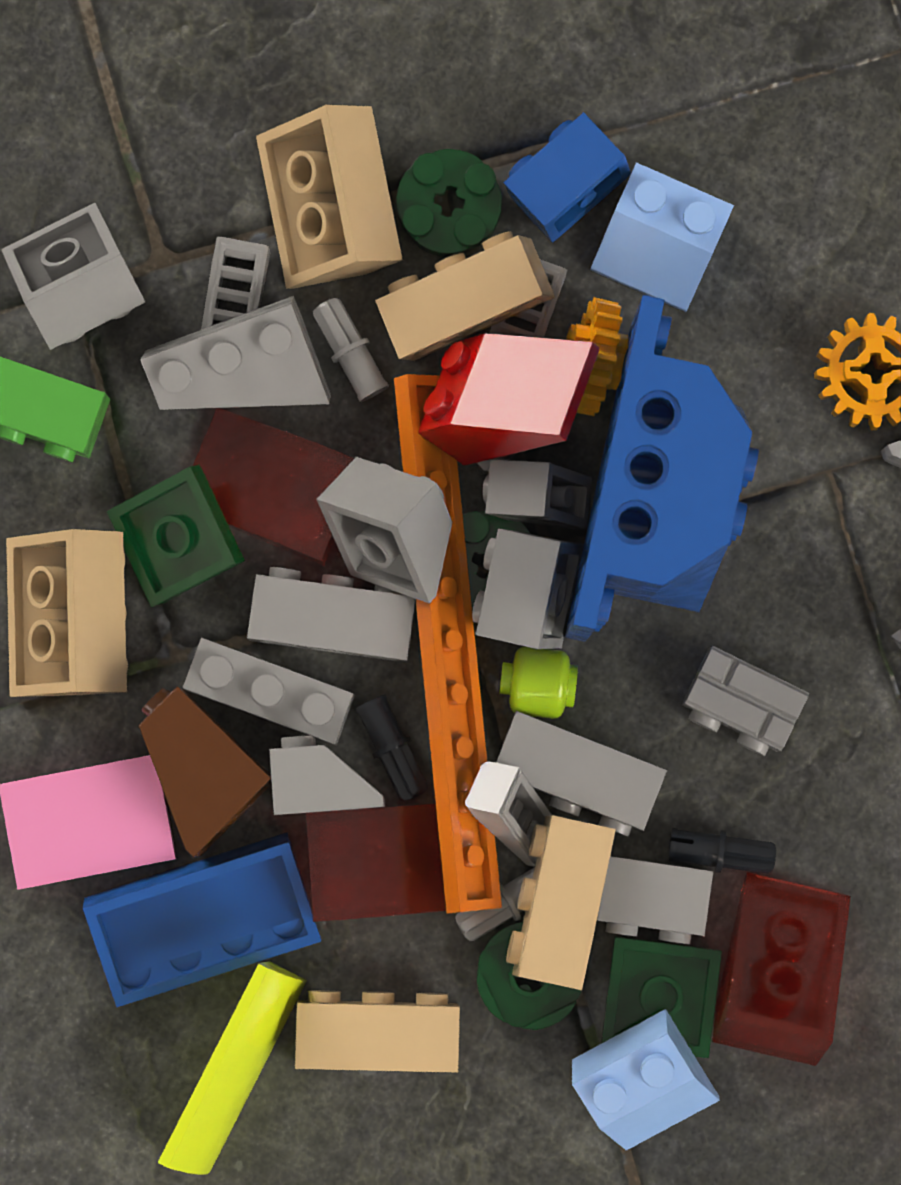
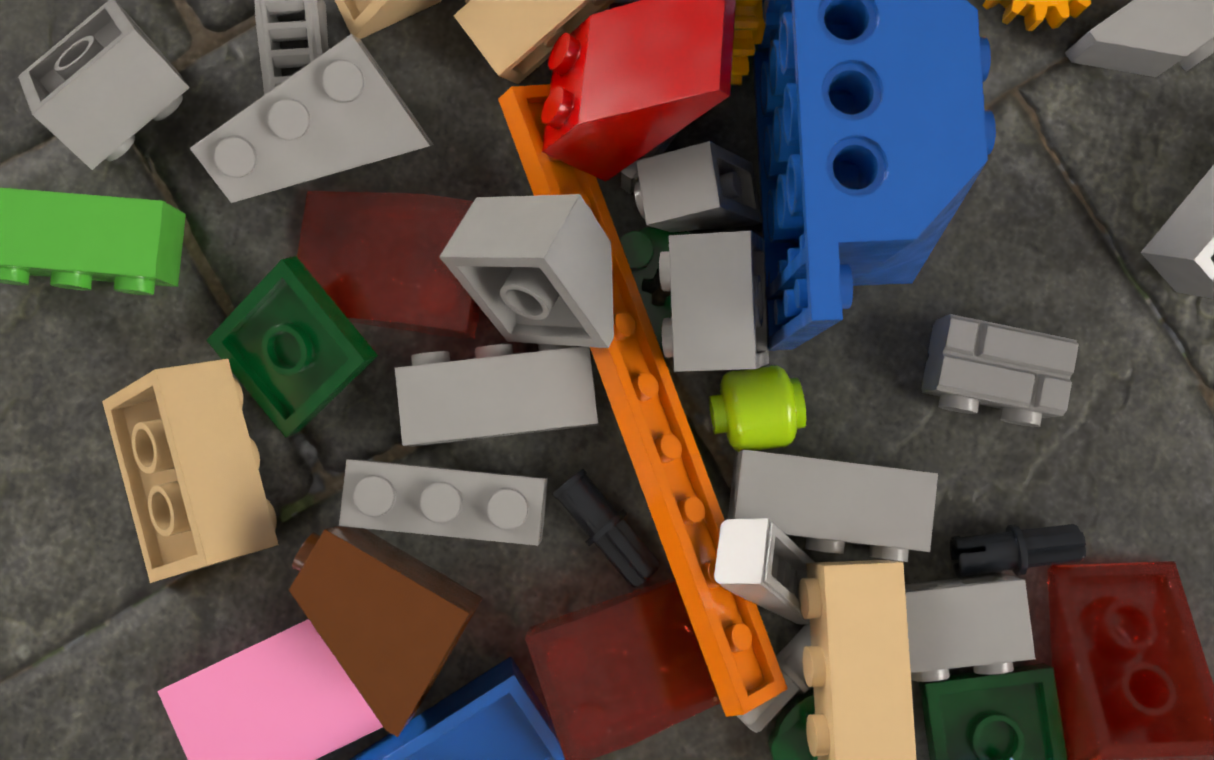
camera: 15 degrees left, 0 degrees up
(316, 780) = (529, 596): light grey slope -> none
(349, 349) = (441, 86): light grey axle -> none

